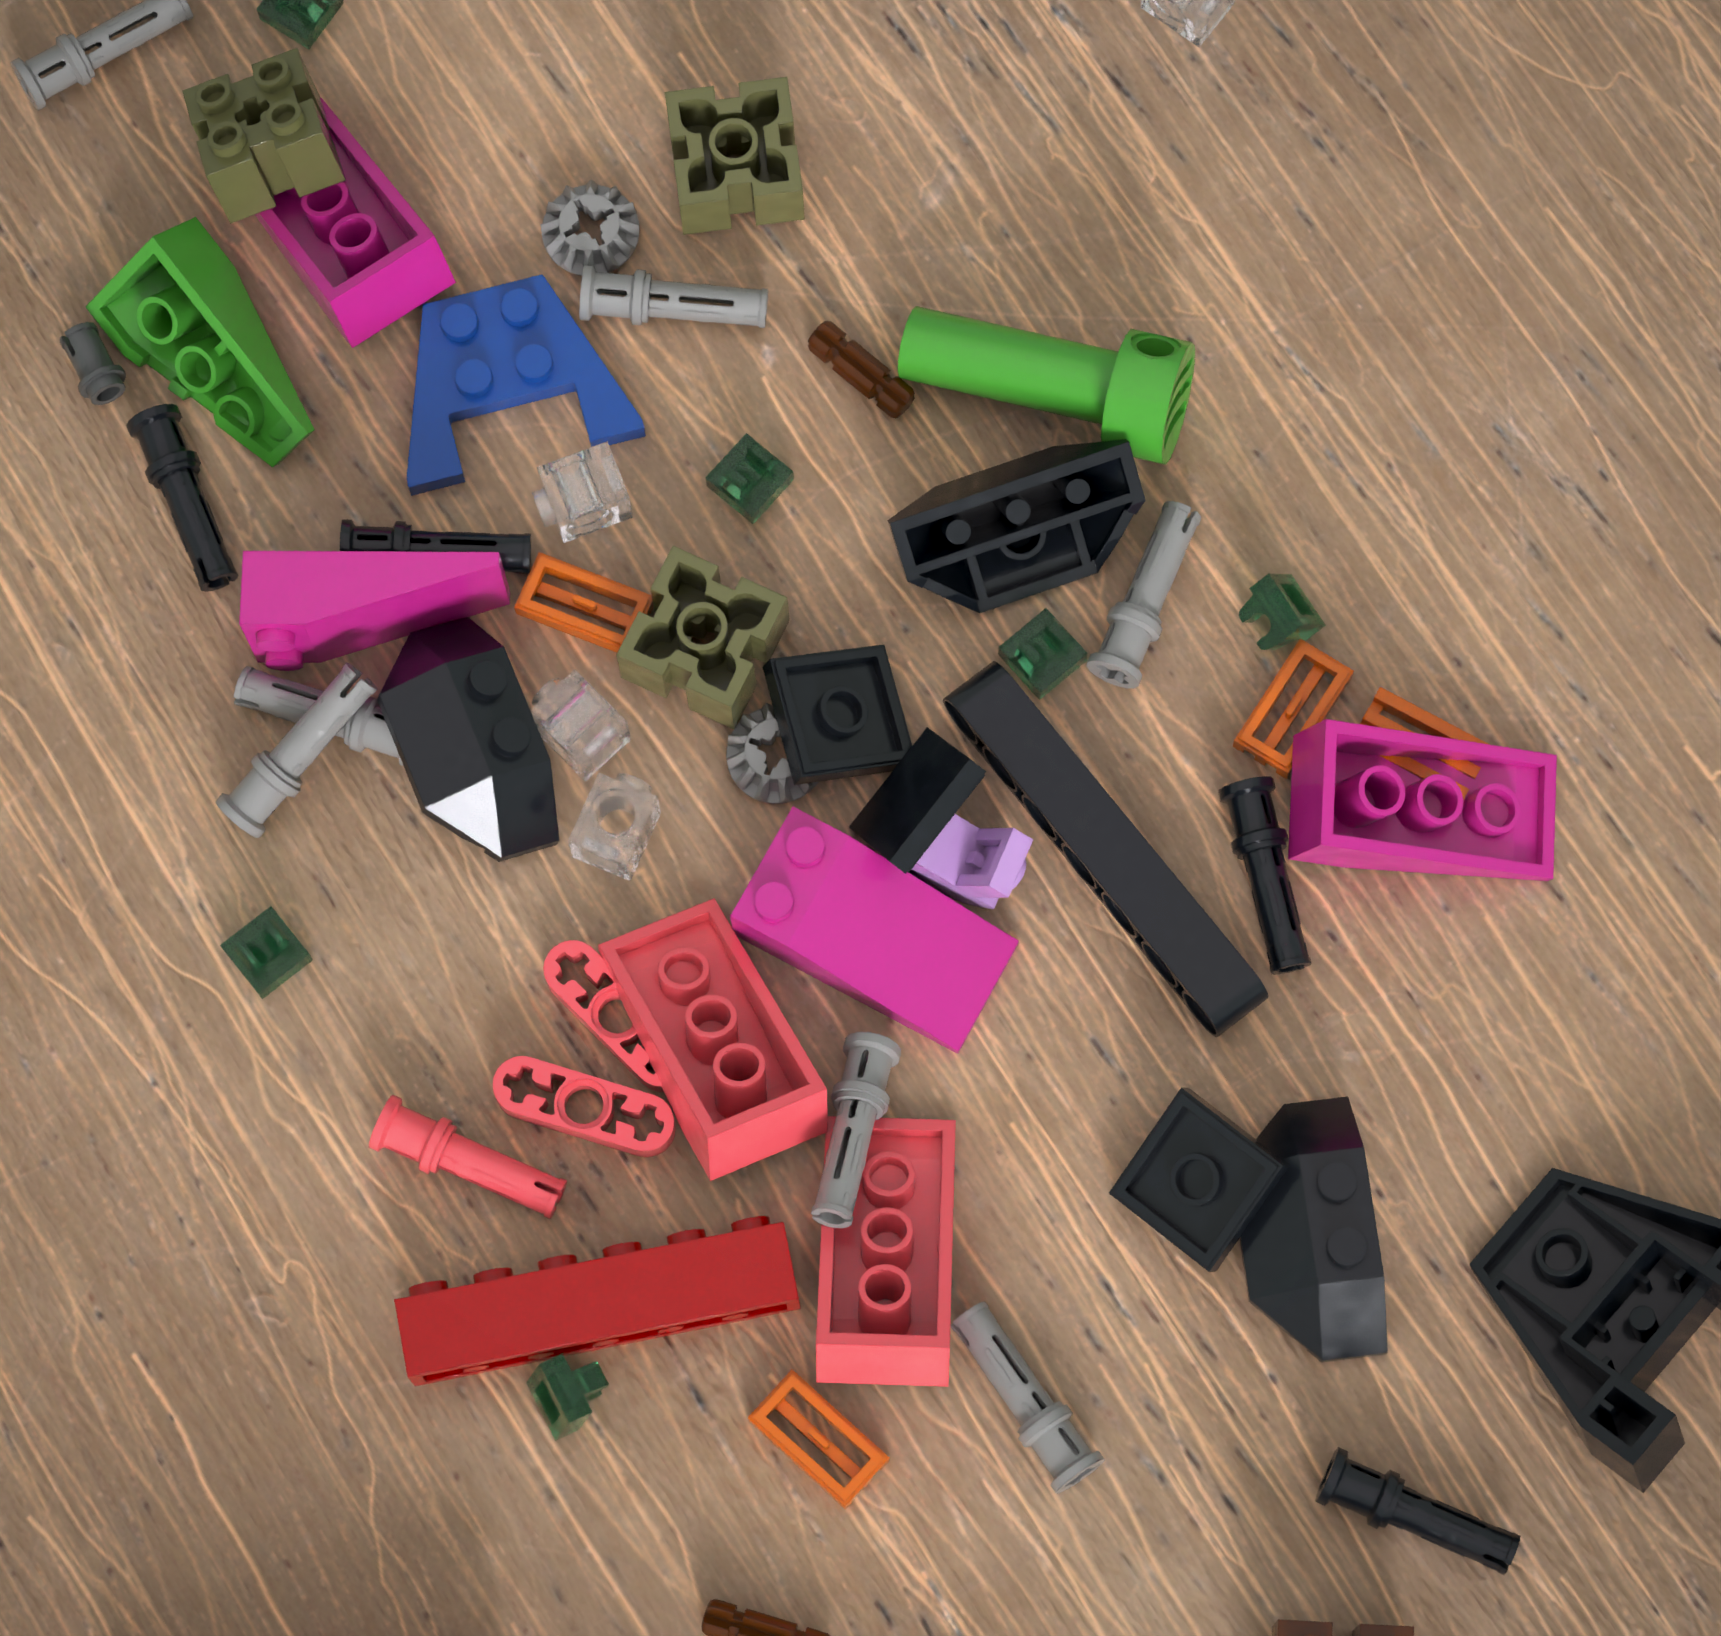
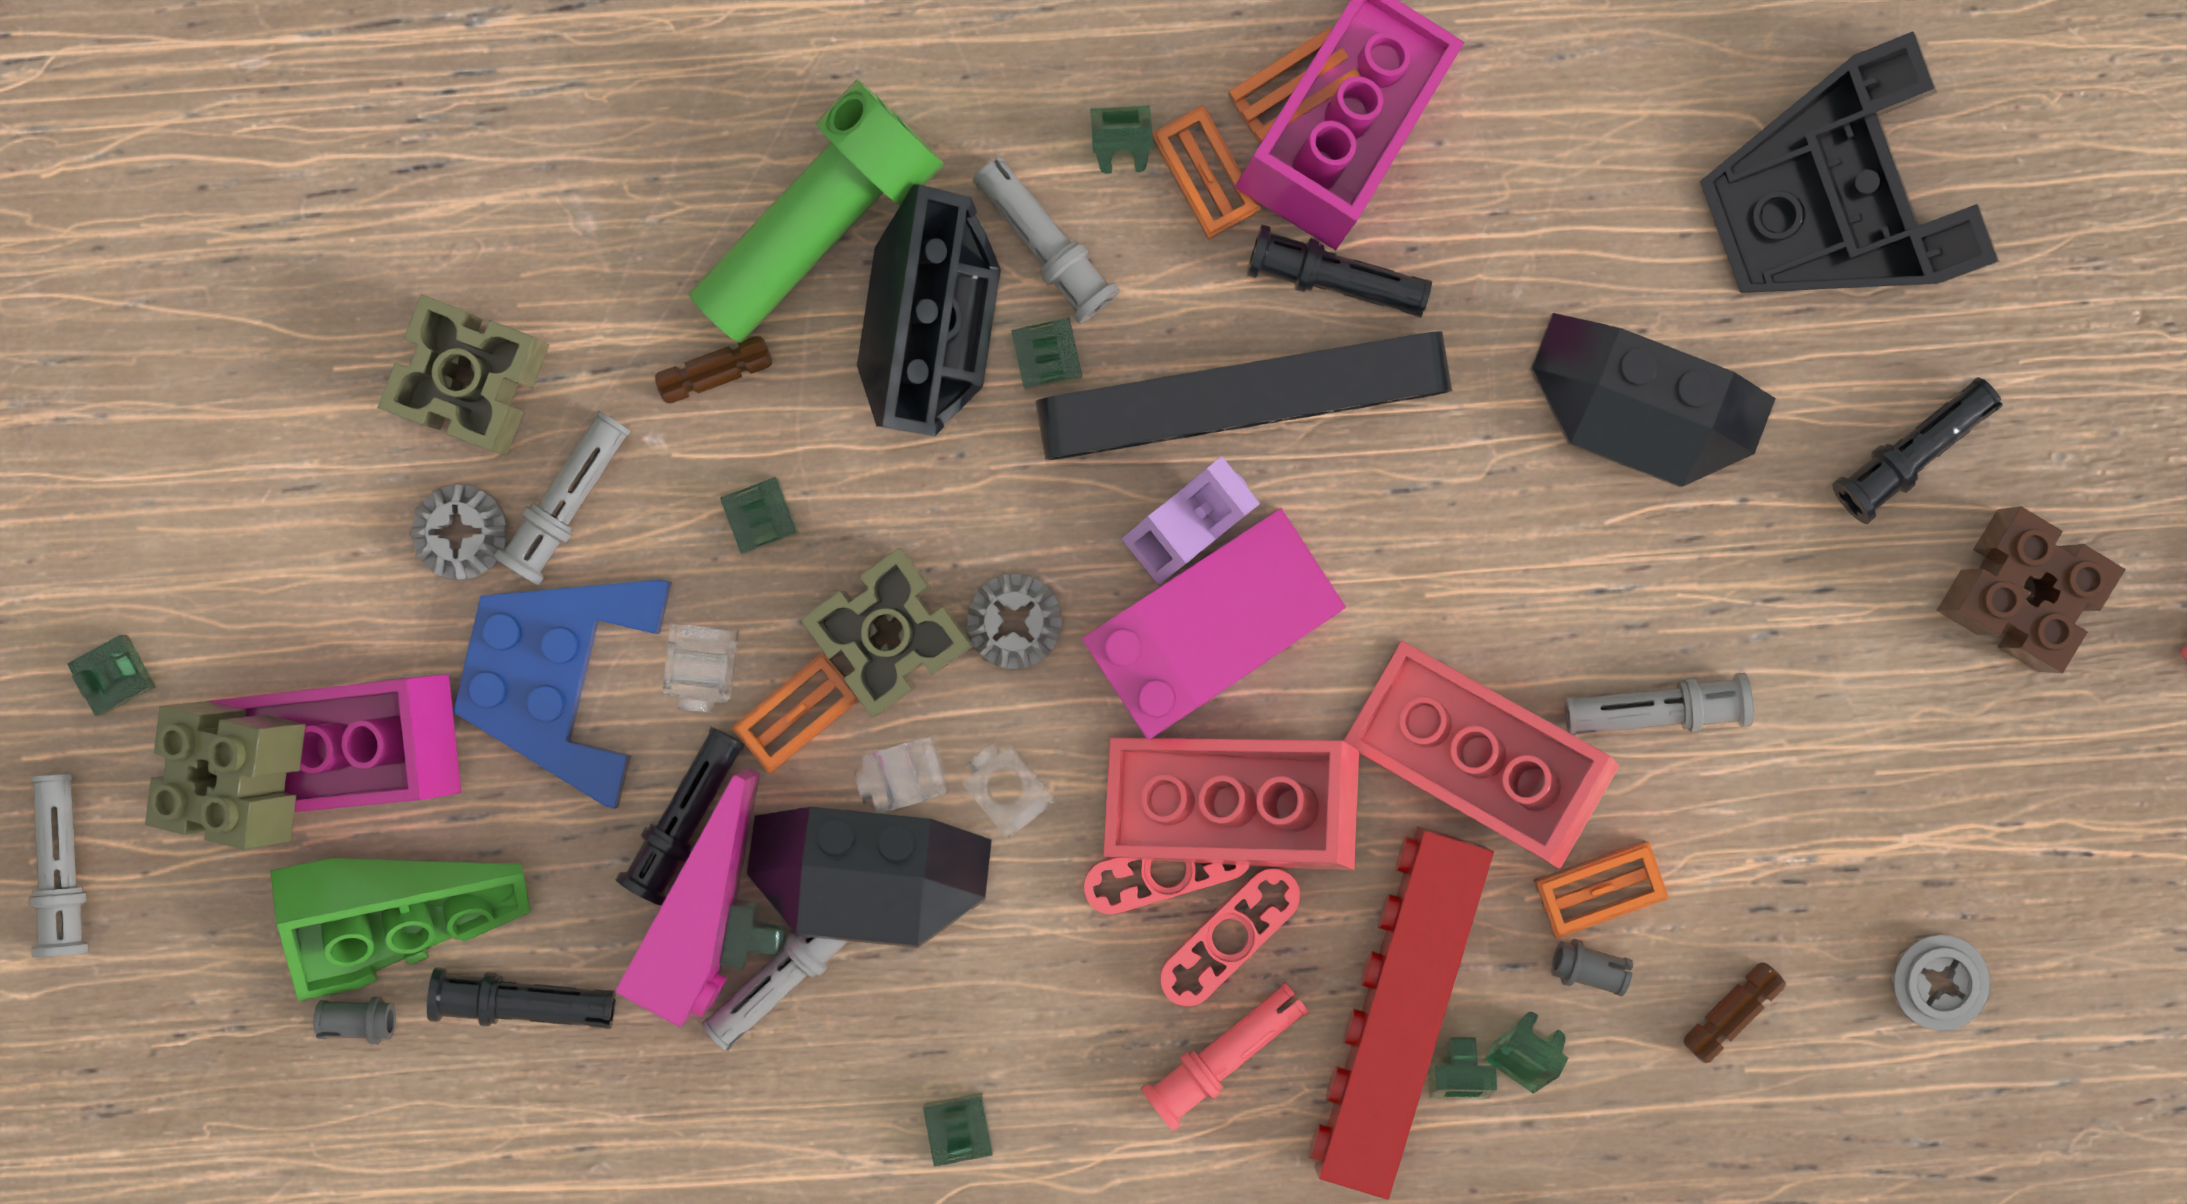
camera: 65 degrees left, 15 degrees up
(279, 772) = (812, 1046): light grey pin -> none
(357, 648) = (748, 935): none -> clear green tile
(616, 1447) = (1528, 1057): none -> clear green tile
(736, 1466) = (1590, 967): none -> dark grey pin
(838, 713) = (1012, 553): black tile -> none
(858, 1103) = (1349, 707): light grey pin -> none
(917, 800) = (1131, 532): black tile -> none
(1199, 1179) = (1565, 473): black tile -> none

